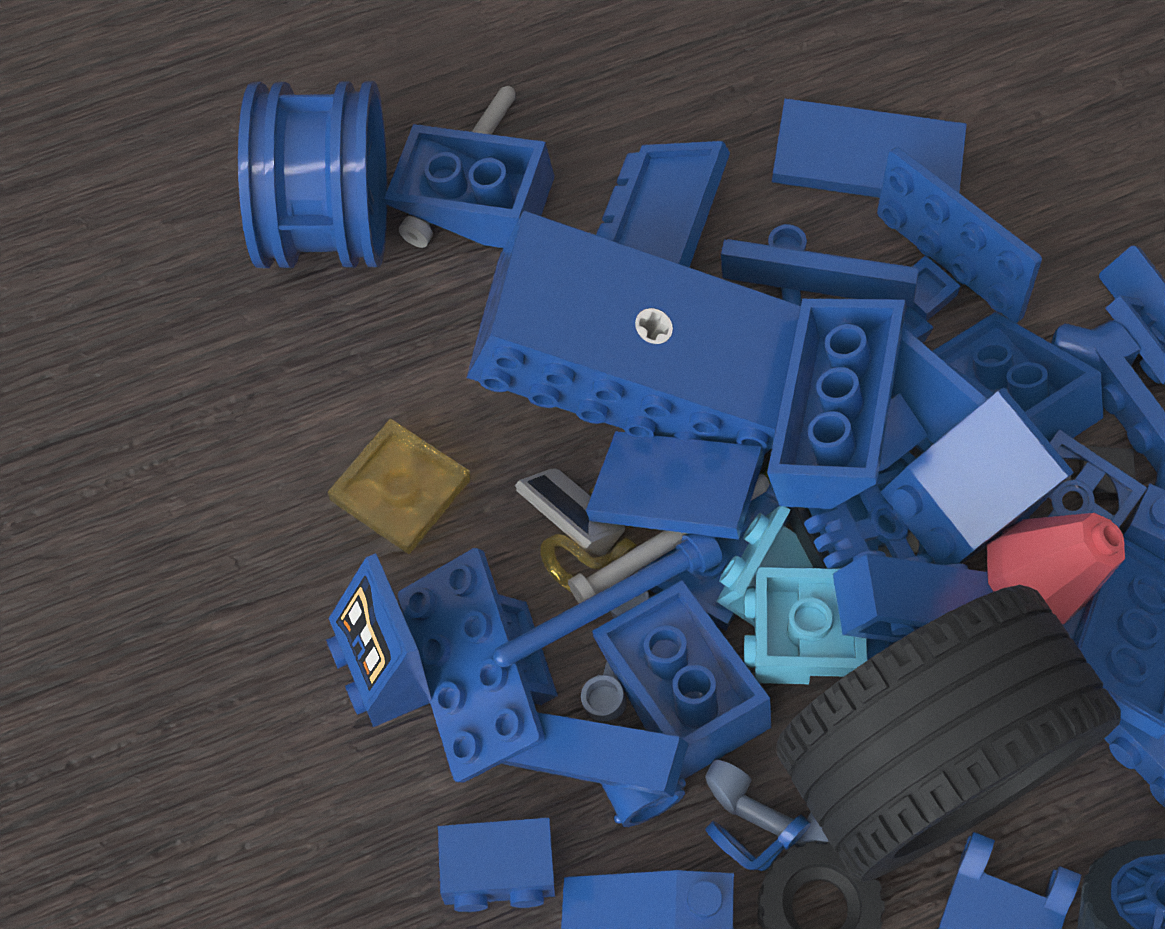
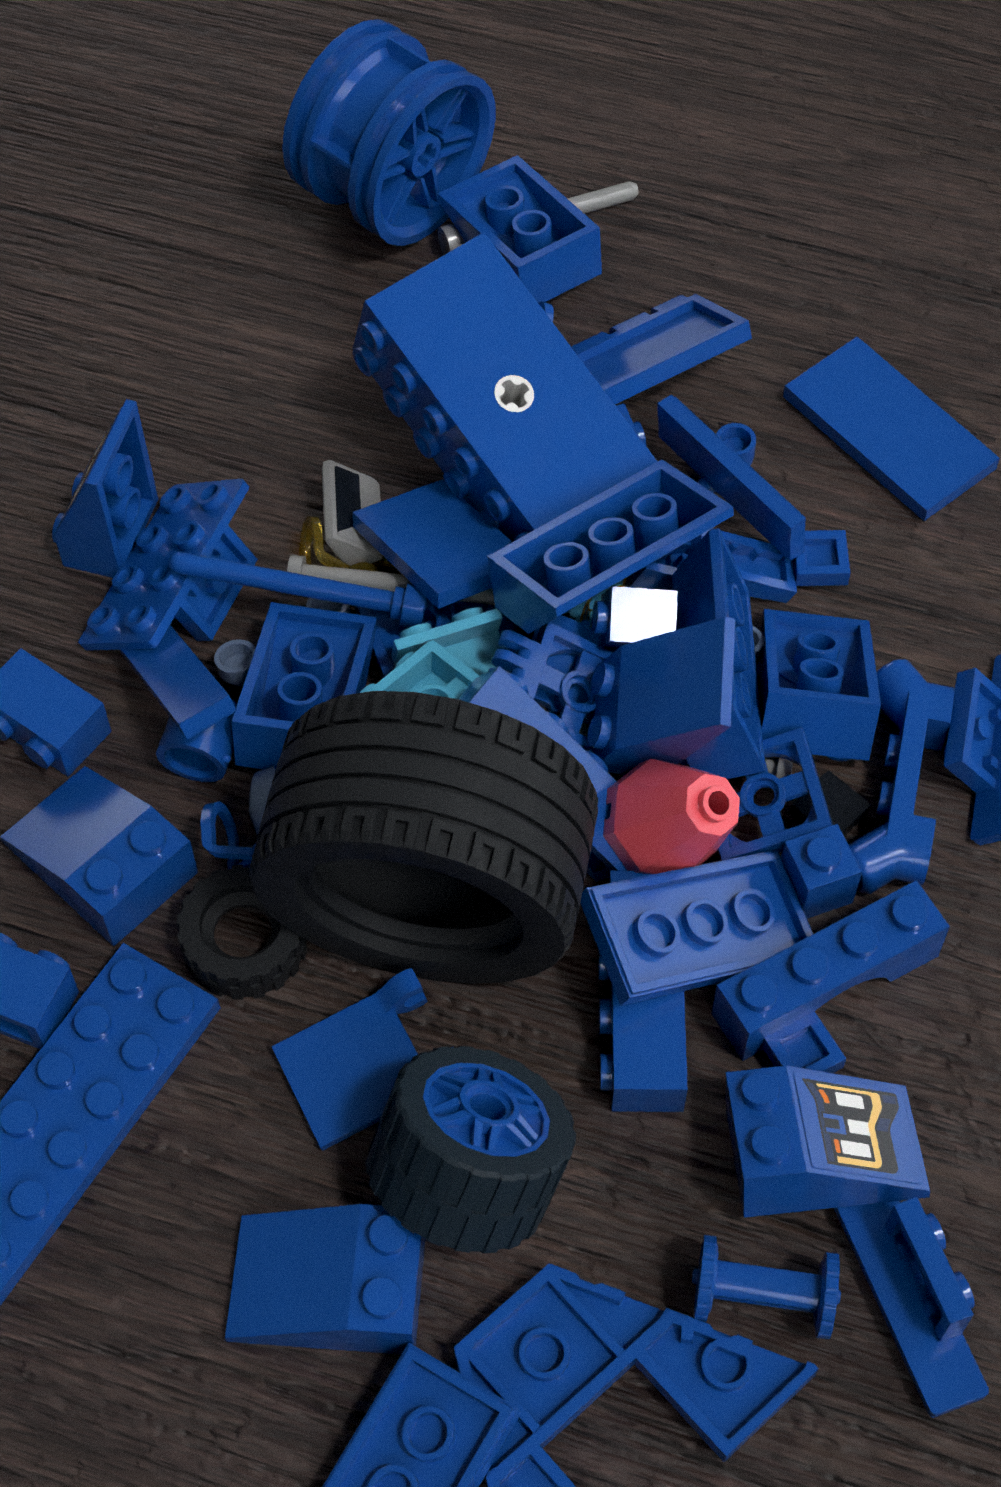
camera: 40 degrees right, 5 degrees down
(399, 486) = (248, 410): clear yellow plate -> none
(958, 235) = (889, 537): blue bracket -> none

